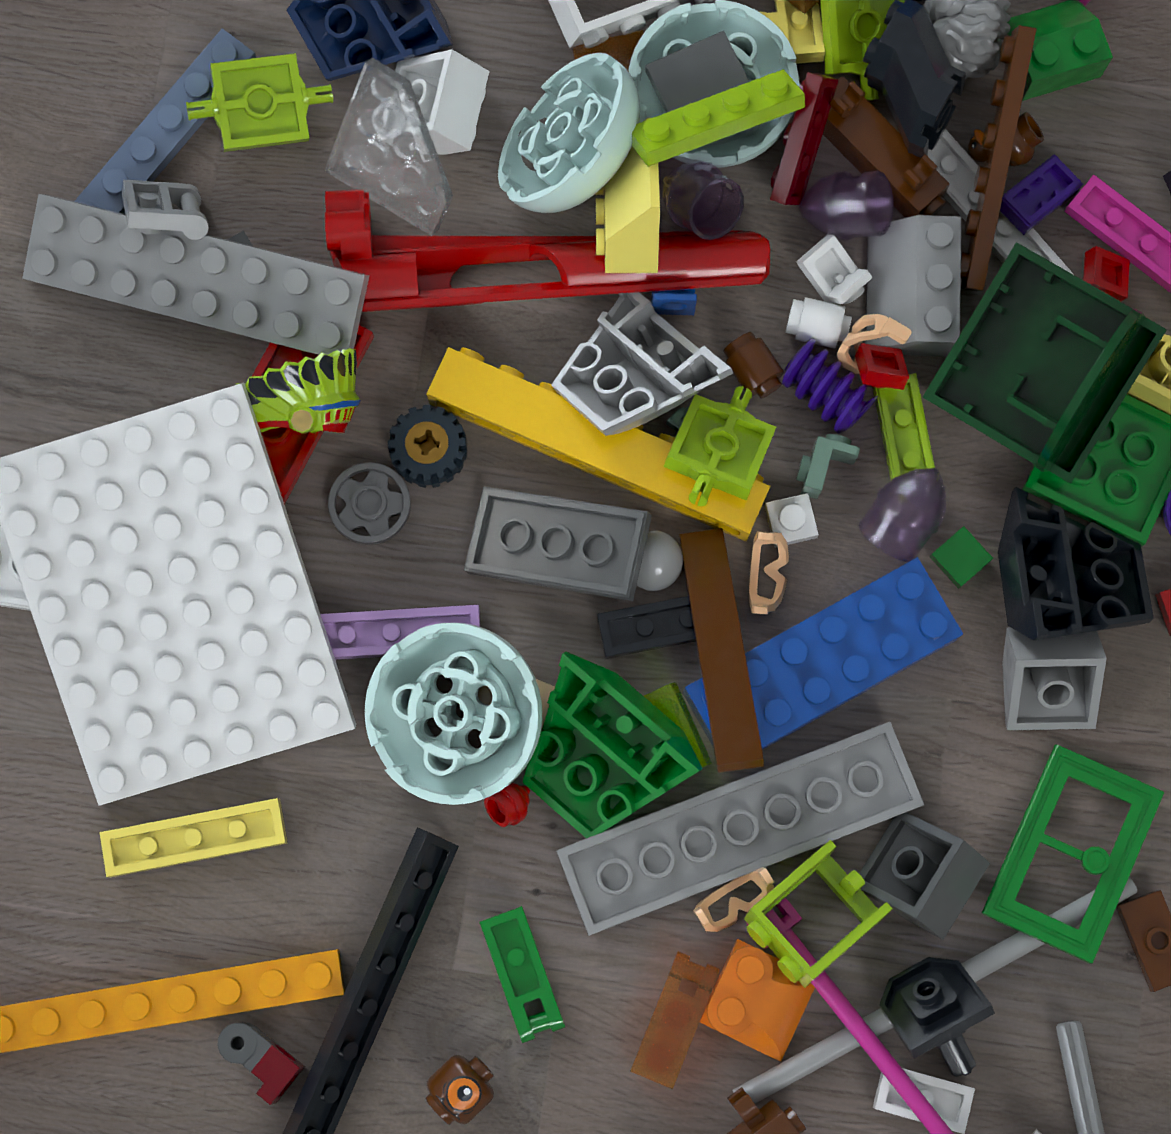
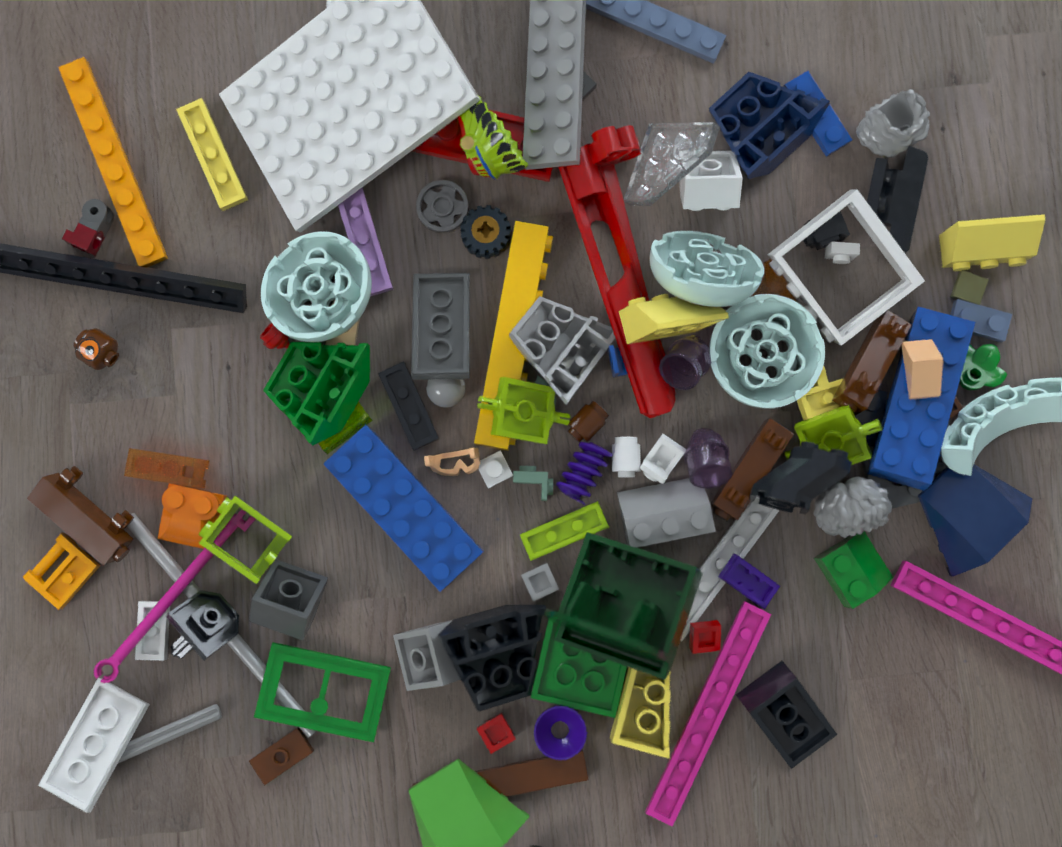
camera: 80 degrees right, 5 degrees up
(151, 210) = (594, 18): light grey plate -> none
(259, 102) = (681, 70): lime plate -> none
(521, 972) = (175, 369): green plate -> none
(696, 72) = (759, 343): dark grey tile -> none
(716, 117) = (736, 355): lime plate -> none
(721, 651) = (391, 440): reddish brown tile -> none
(739, 828) = (291, 481): light grey plate -> none
(762, 880) = (231, 469): light nougat helmet -> none
(803, 140) = (743, 417): dark red plate -> none
(881, 366) = (604, 503): red plate -> none
(883, 327) = (609, 492): light nougat helmet -> none
(906, 513) = (508, 538): clear purple helmet -> none
(961, 557) = (496, 582): green tile -> none
(975, 491) = (540, 582): none -> light grey plate
(999, 141) = (773, 544): reddish brown plate -> none
(1026, 138) = (783, 554): reddish brown animal -> none

